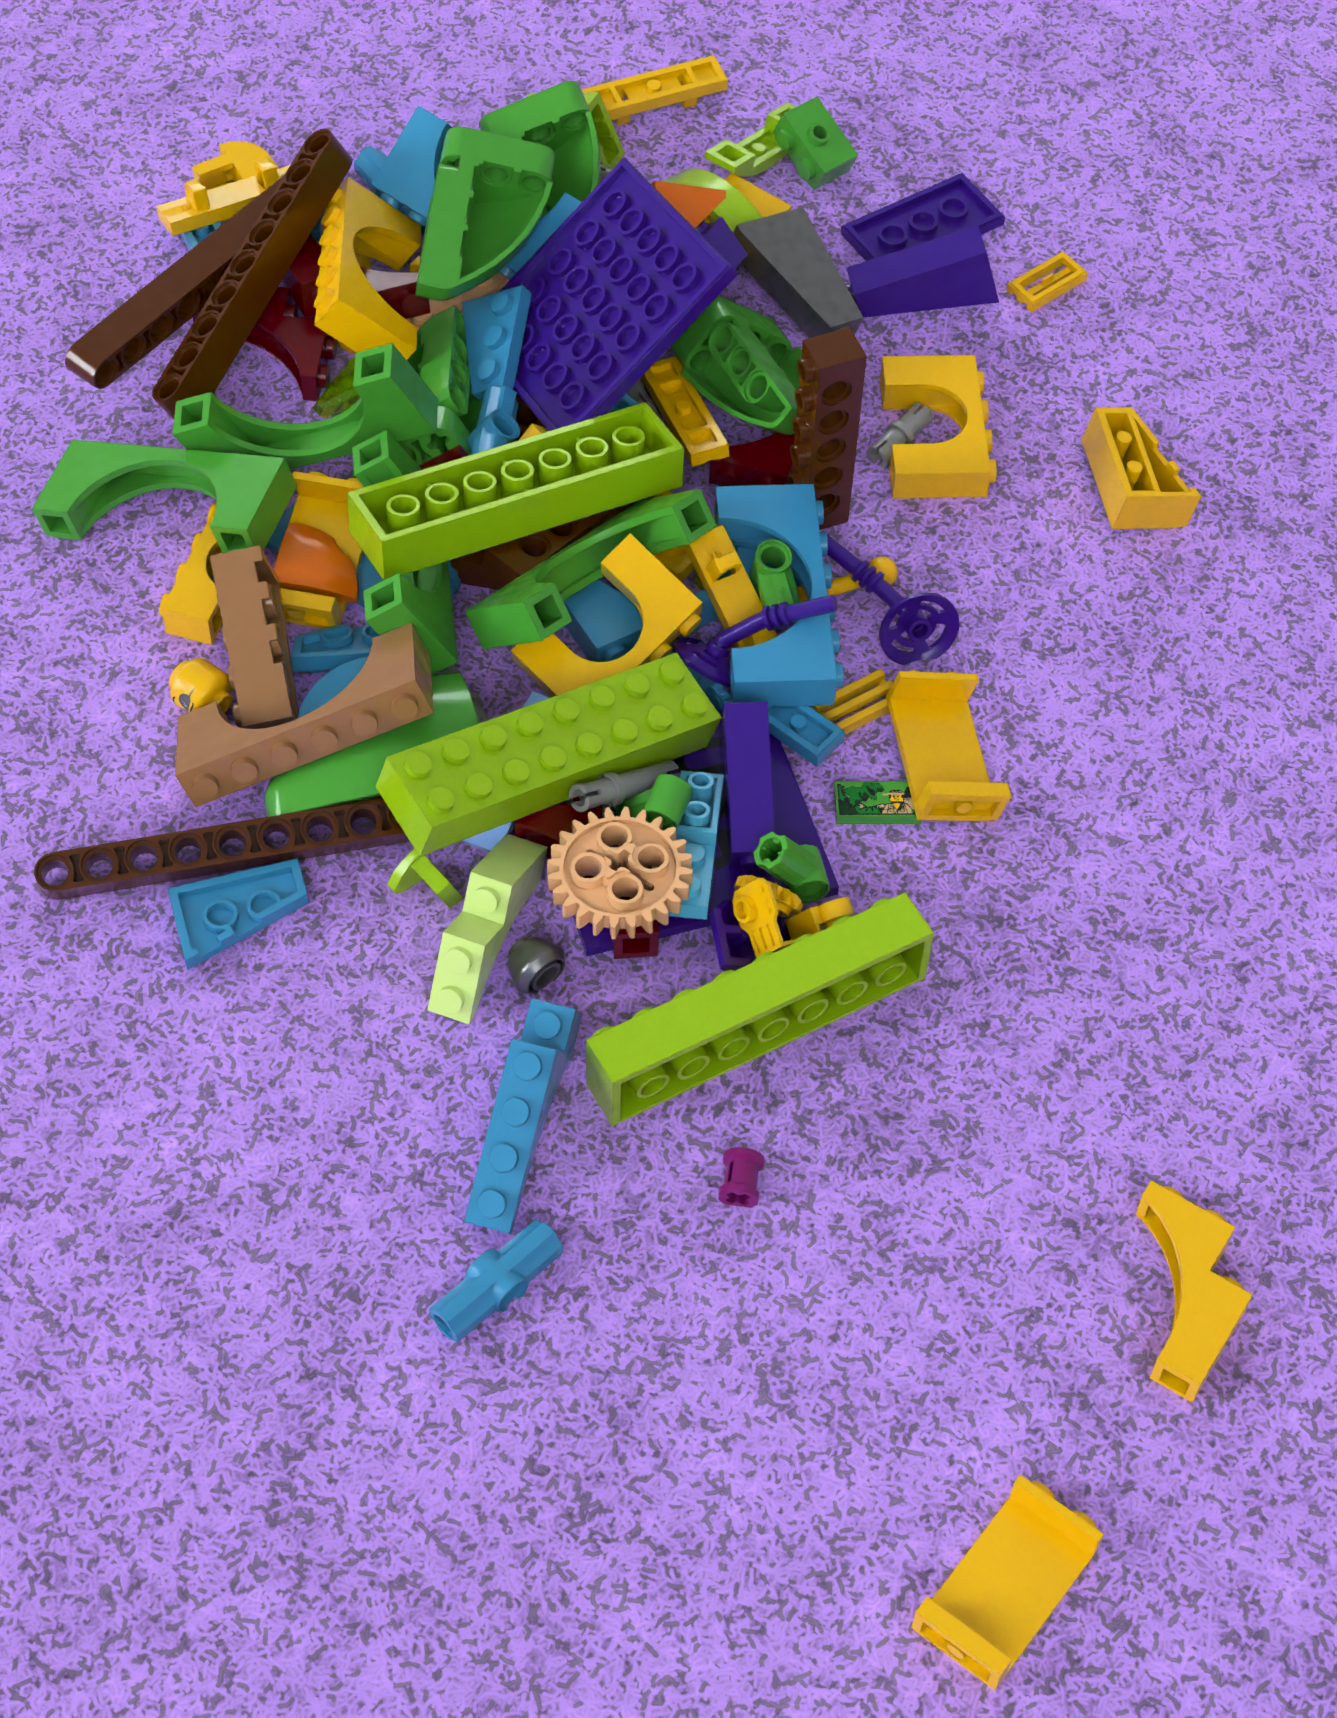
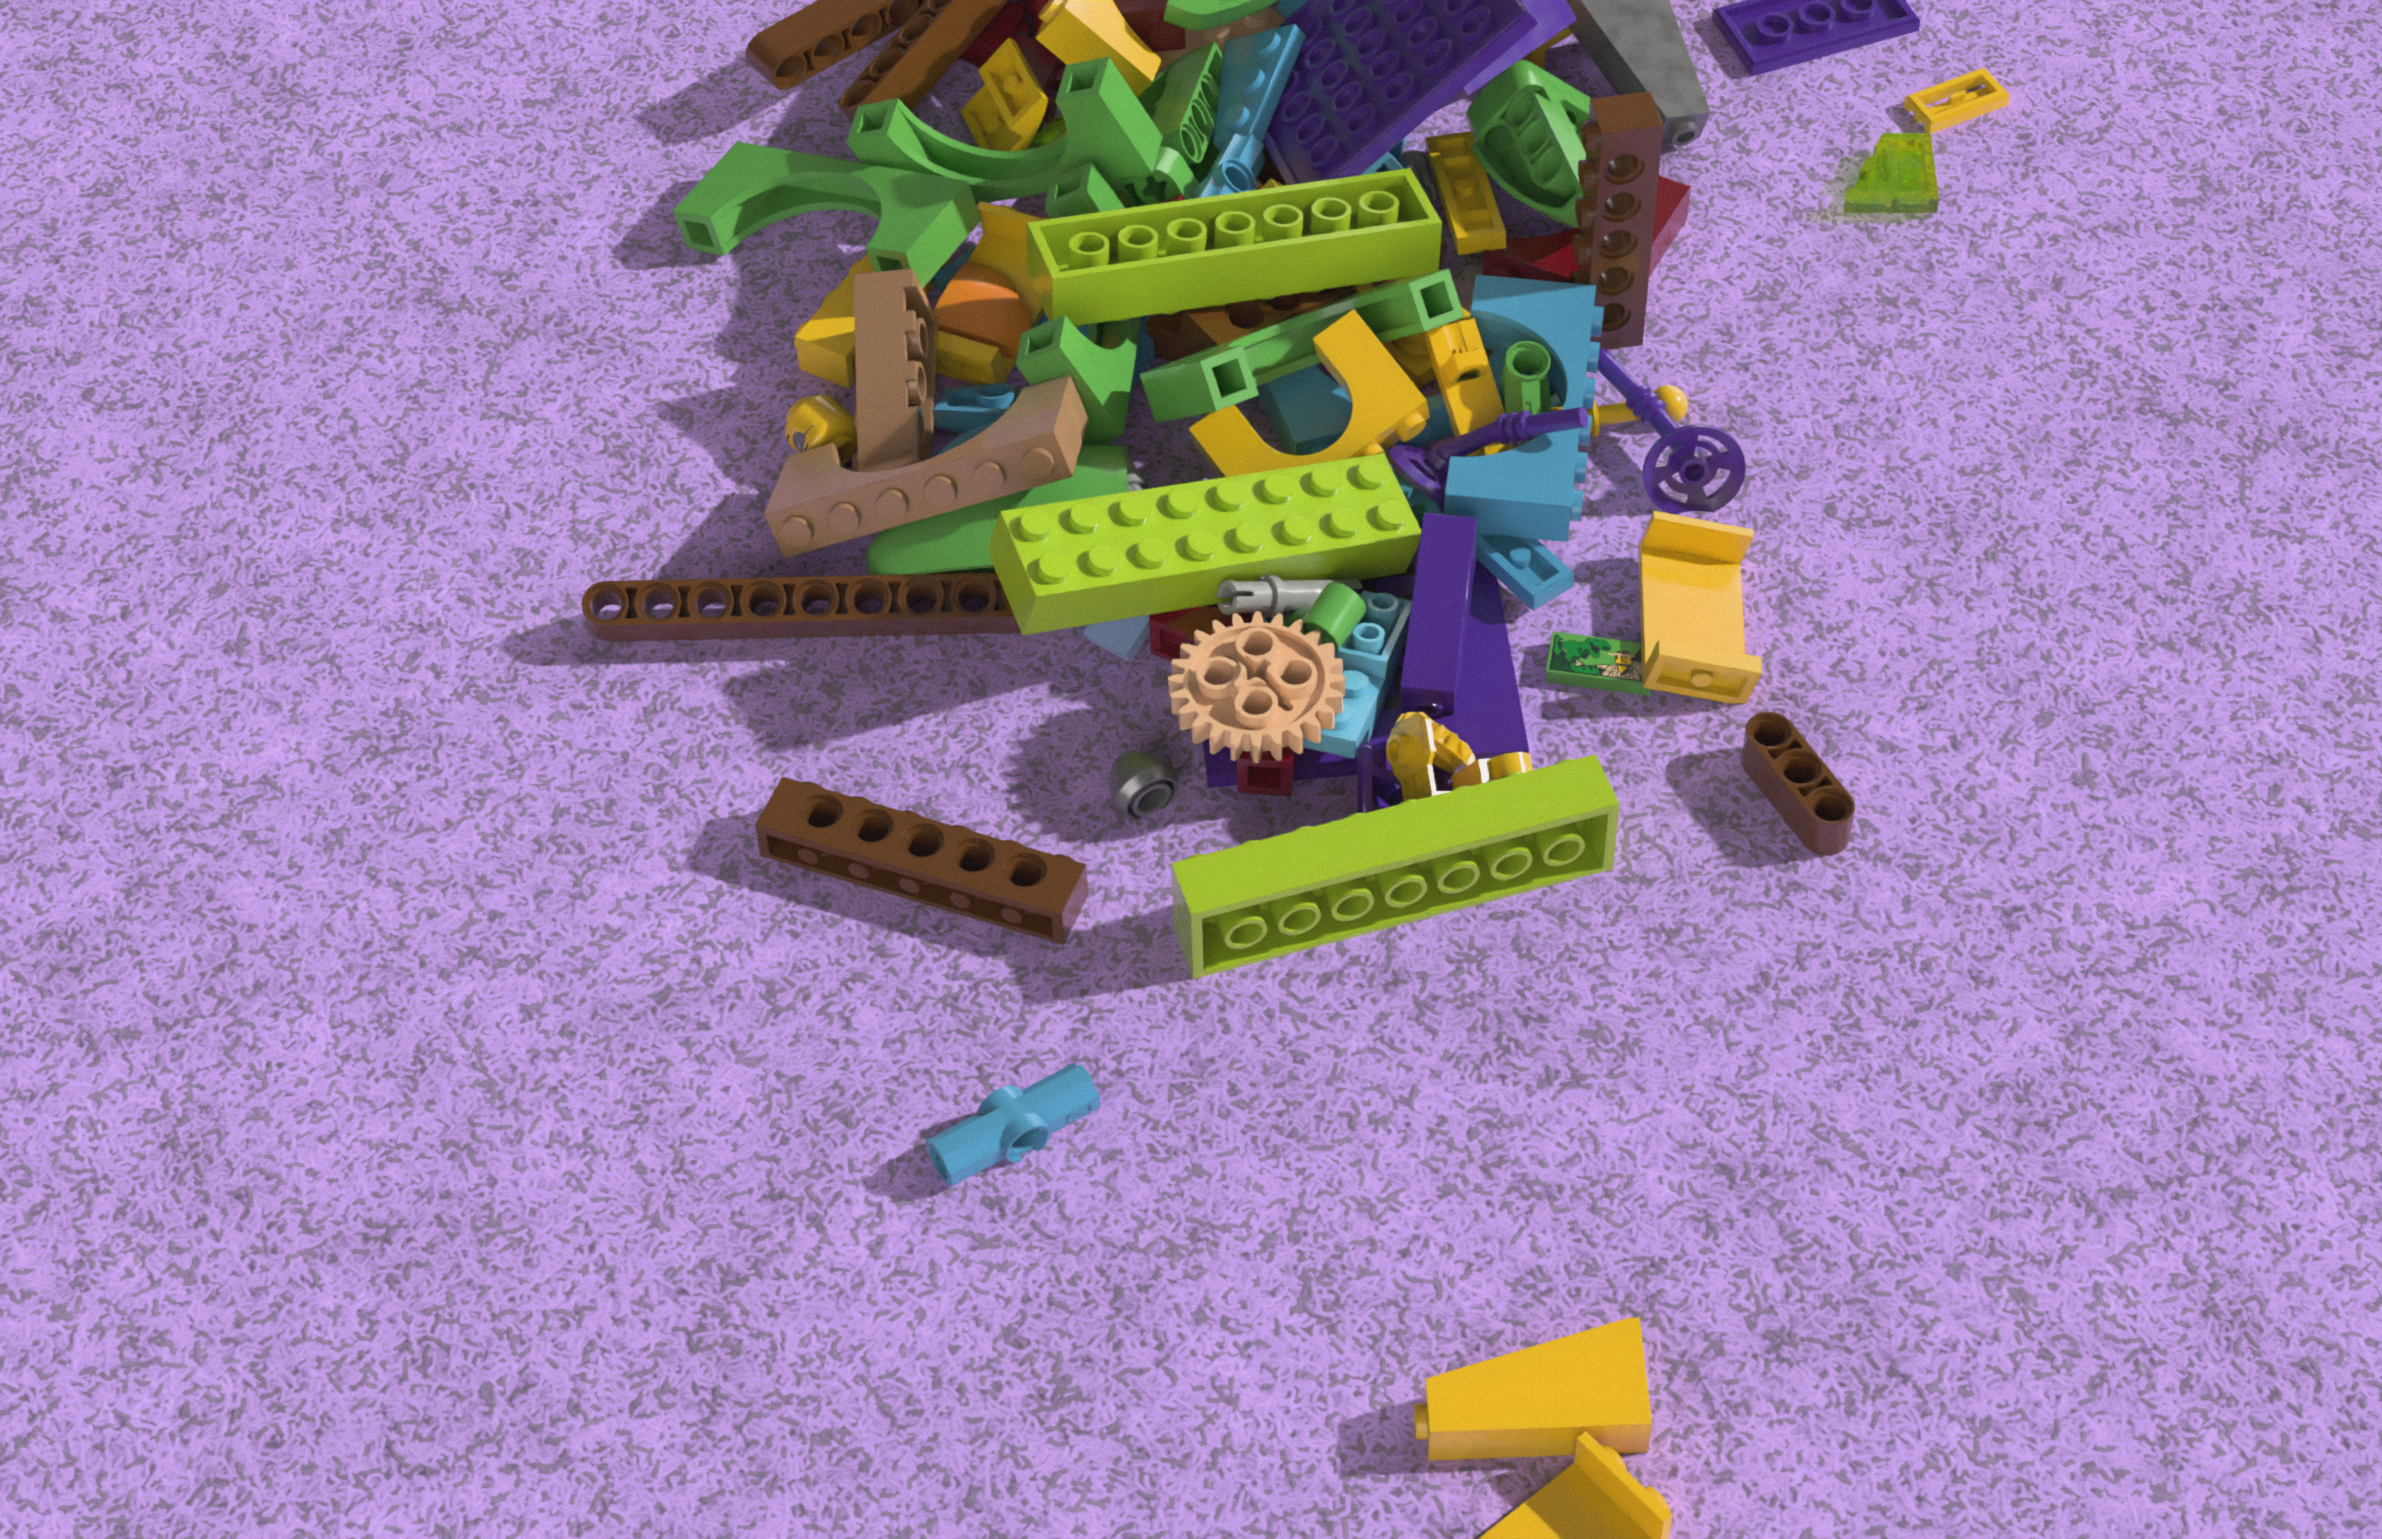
camera: 15 degrees right, 5 degrees down
(234, 906) = (805, 674): dark azure wing -> none
(293, 380) = (1009, 104): none -> yellow slope
(344, 1068) = (923, 860): none -> reddish brown brick
(415, 869) = (1027, 660): lime tile -> none
(473, 940) = (1066, 748): yellowish green arch -> none
(520, 1112) = (1086, 929): dark azure arch -> none
(741, 1177) = (1331, 1054): magenta bush -> none
(794, 865) = (1476, 713): bright green piece -> none
(852, 690) = (1599, 544): yellow tile -> none
(900, 432) = (1728, 253): light grey pin -> none
(925, 277) = (1800, 76): dark purple slope -> none
(952, 388) = (1786, 294): yellow arch -> none
(977, 1449) = (1542, 1399): none -> yellow slope
(1018, 353) = (1896, 177): none -> clear neon green wing
(1051, 867) = (1797, 783): none -> reddish brown beam
(1133, 475) = (2007, 330): yellow wedge -> none
(1205, 1303) = (1870, 1283): yellow arch -> none

